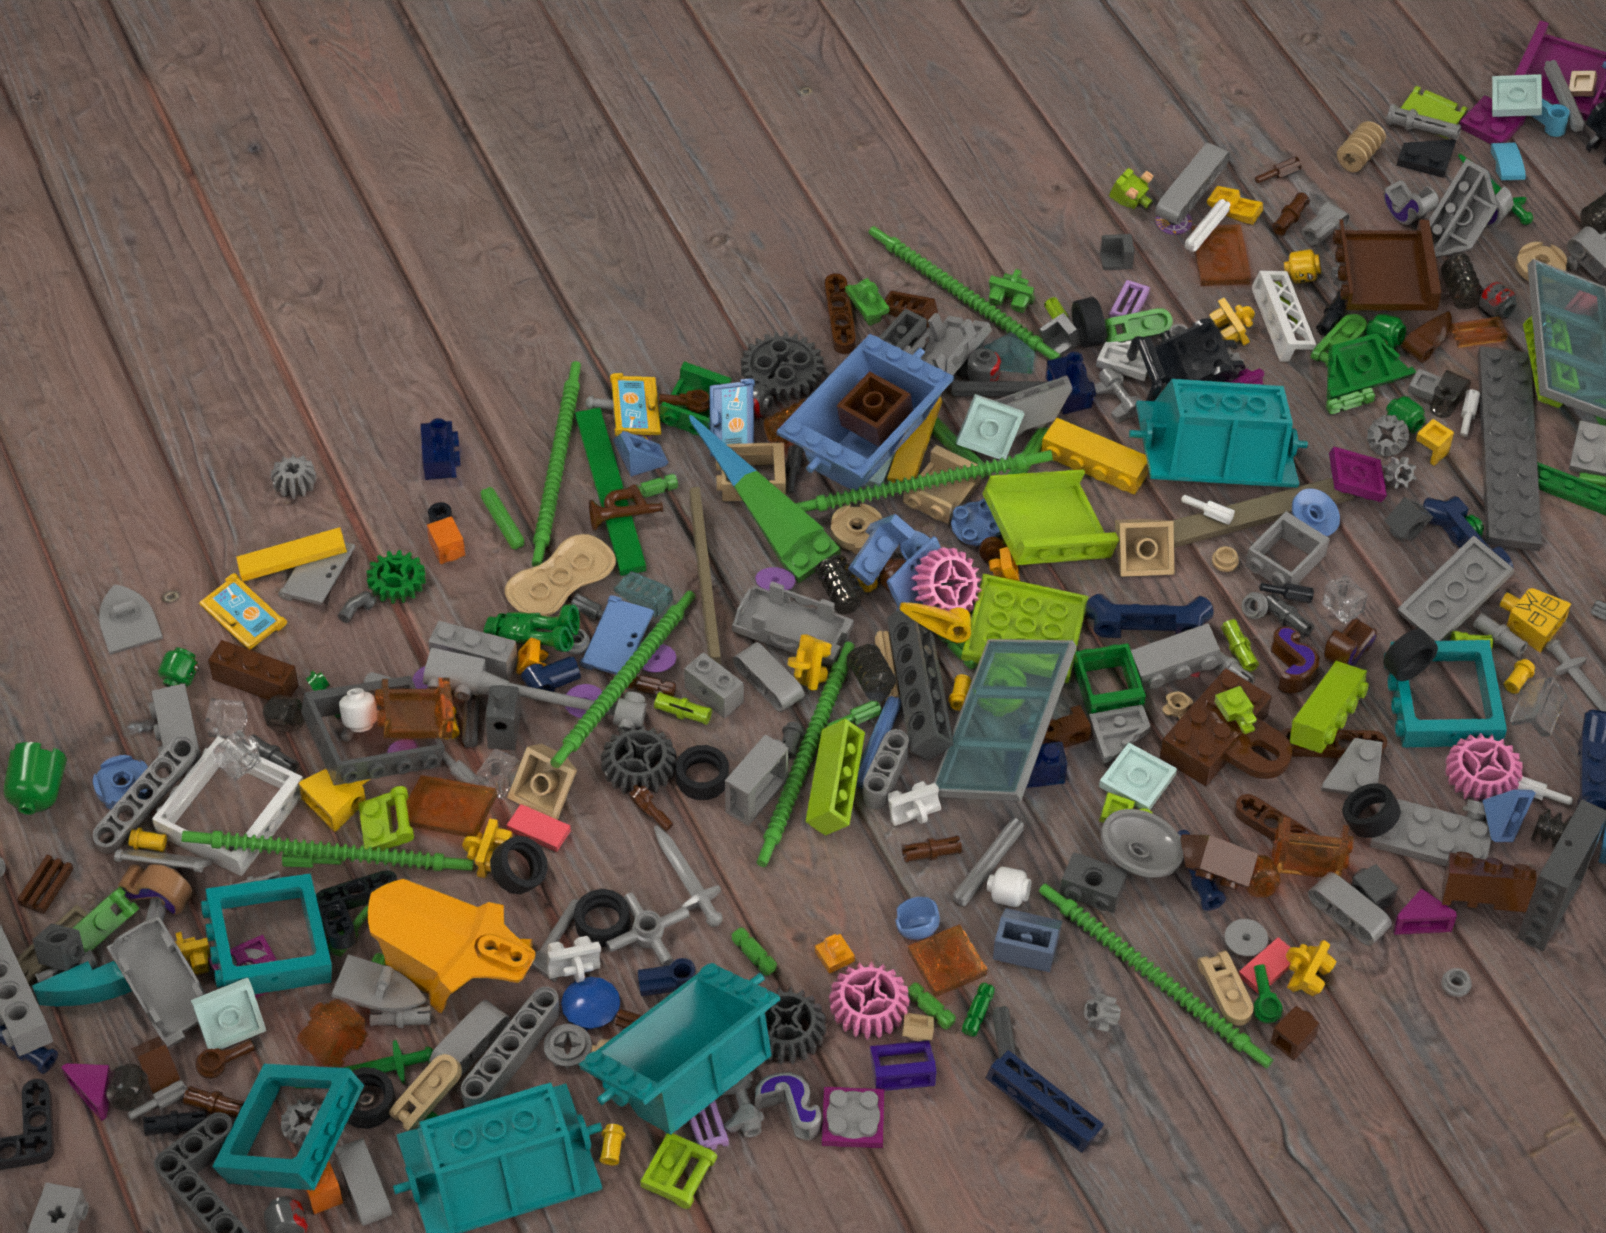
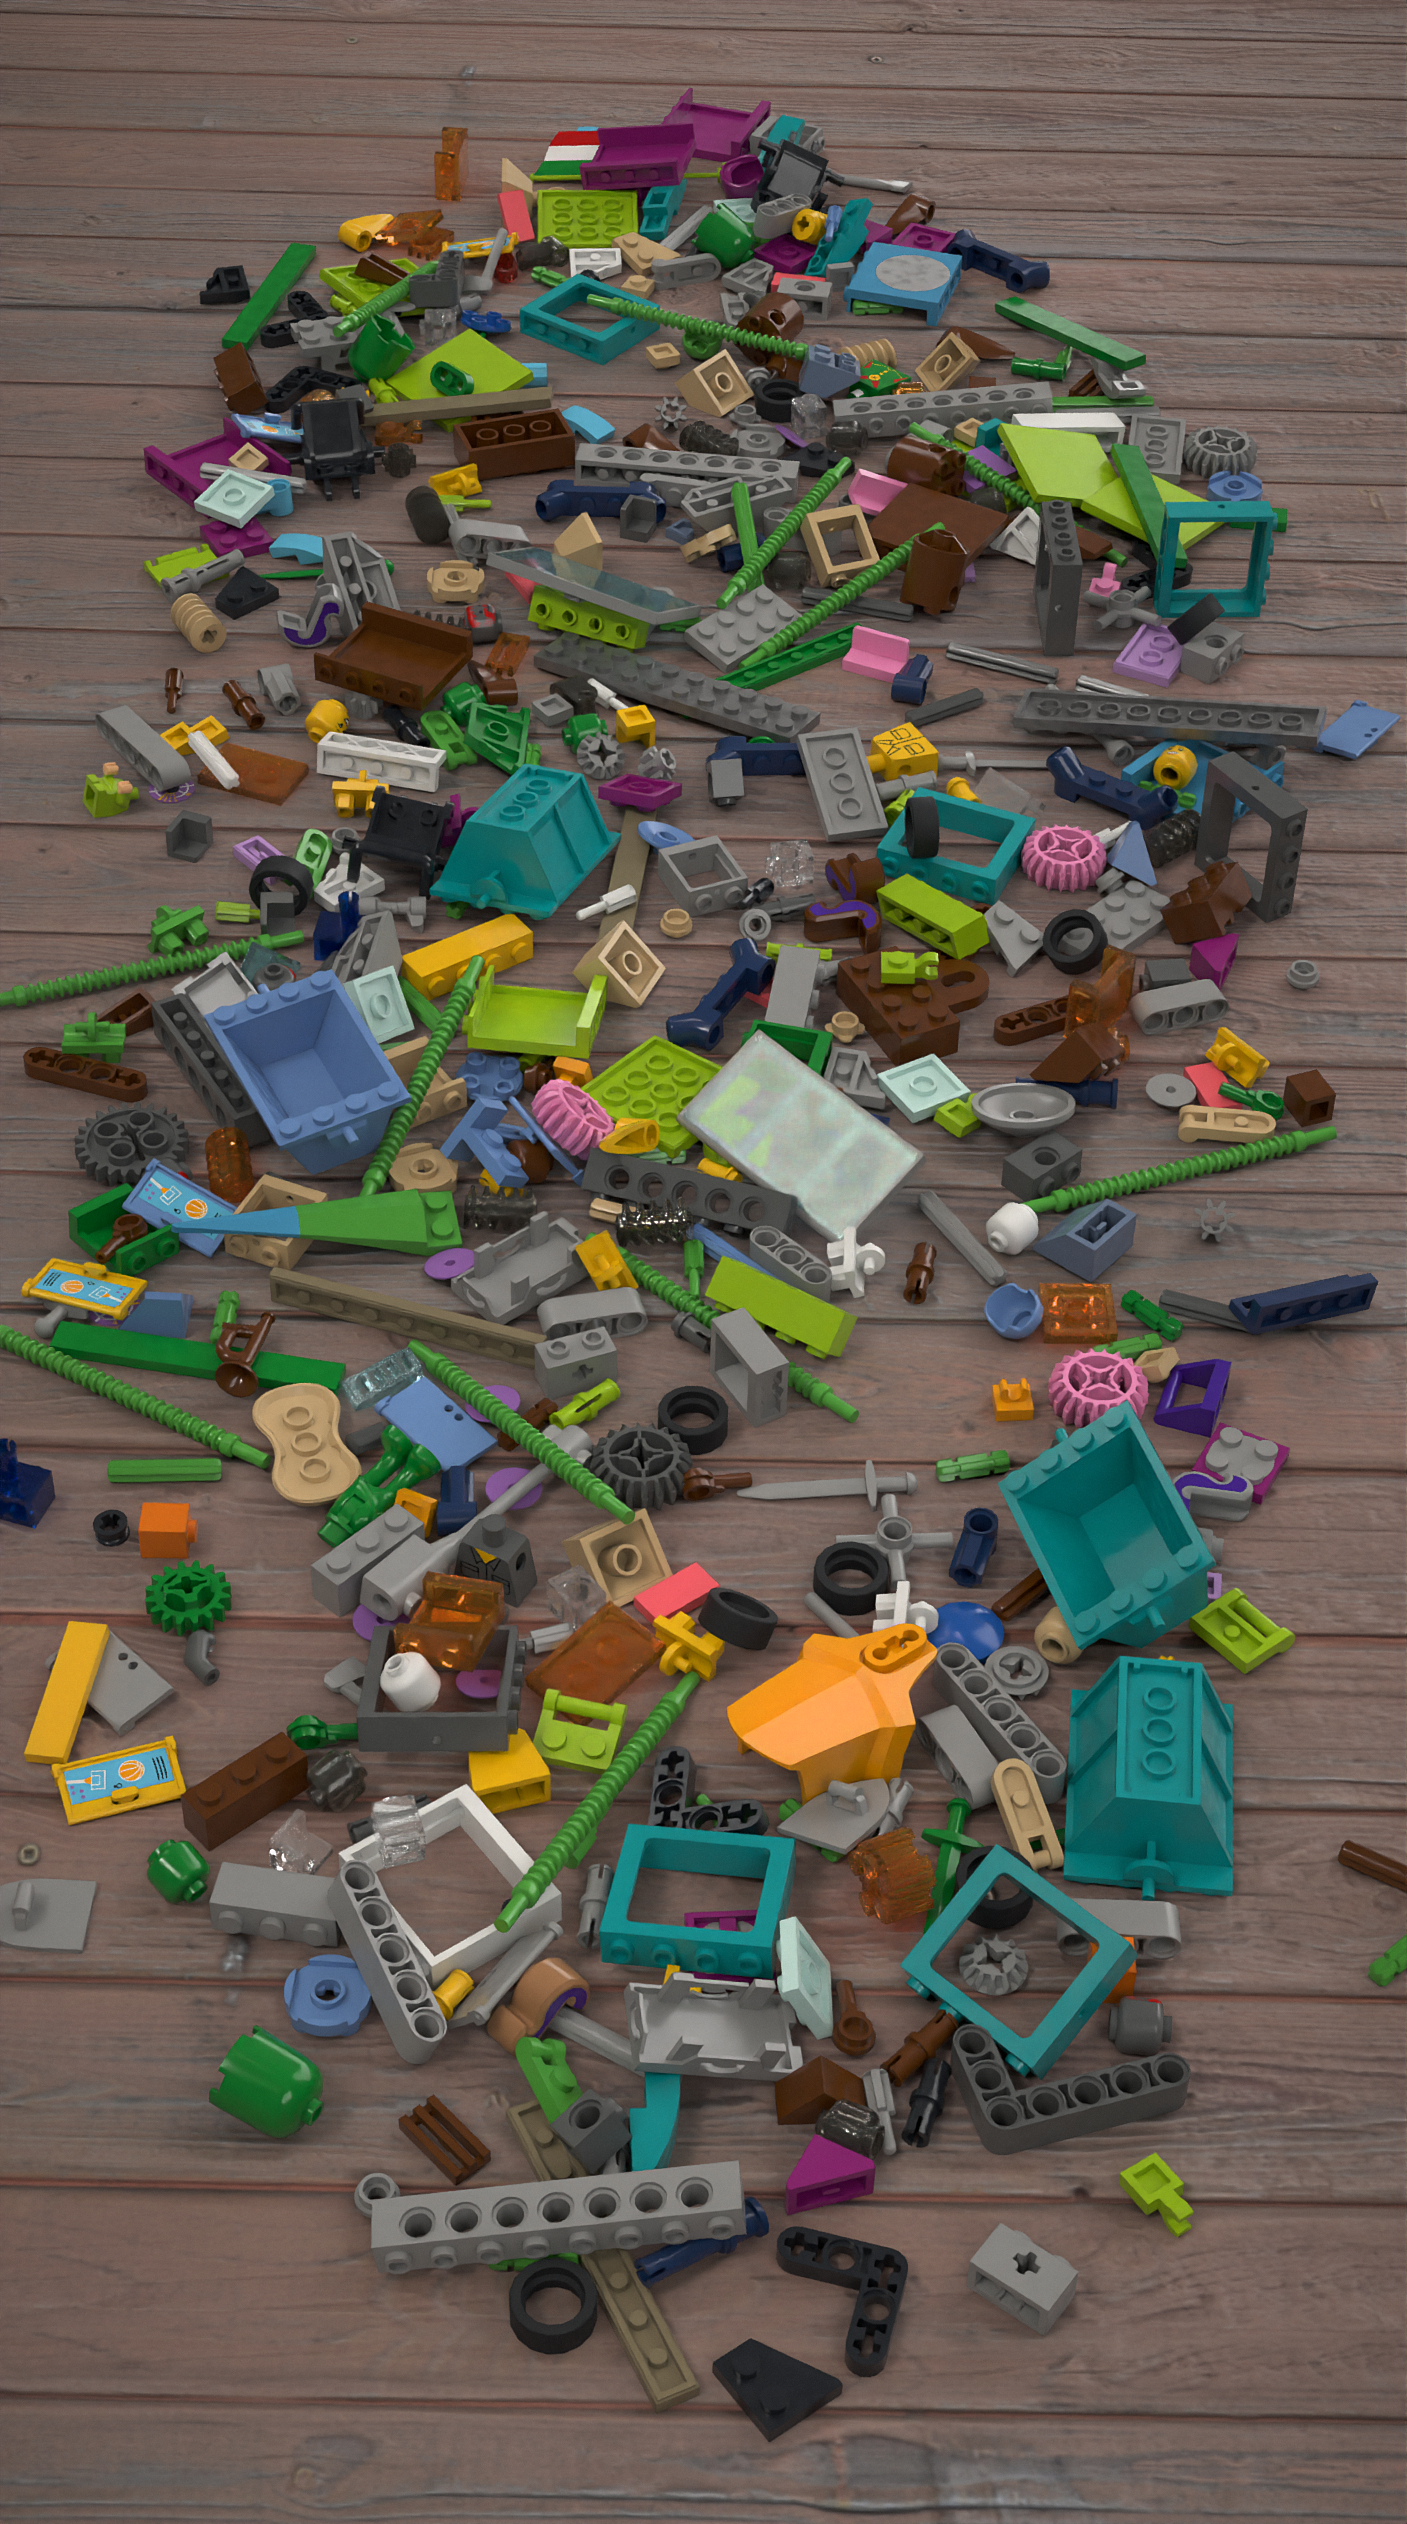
camera: 65 degrees left, 10 degrees down
(874, 408) = (307, 1061): reddish brown brick -> none

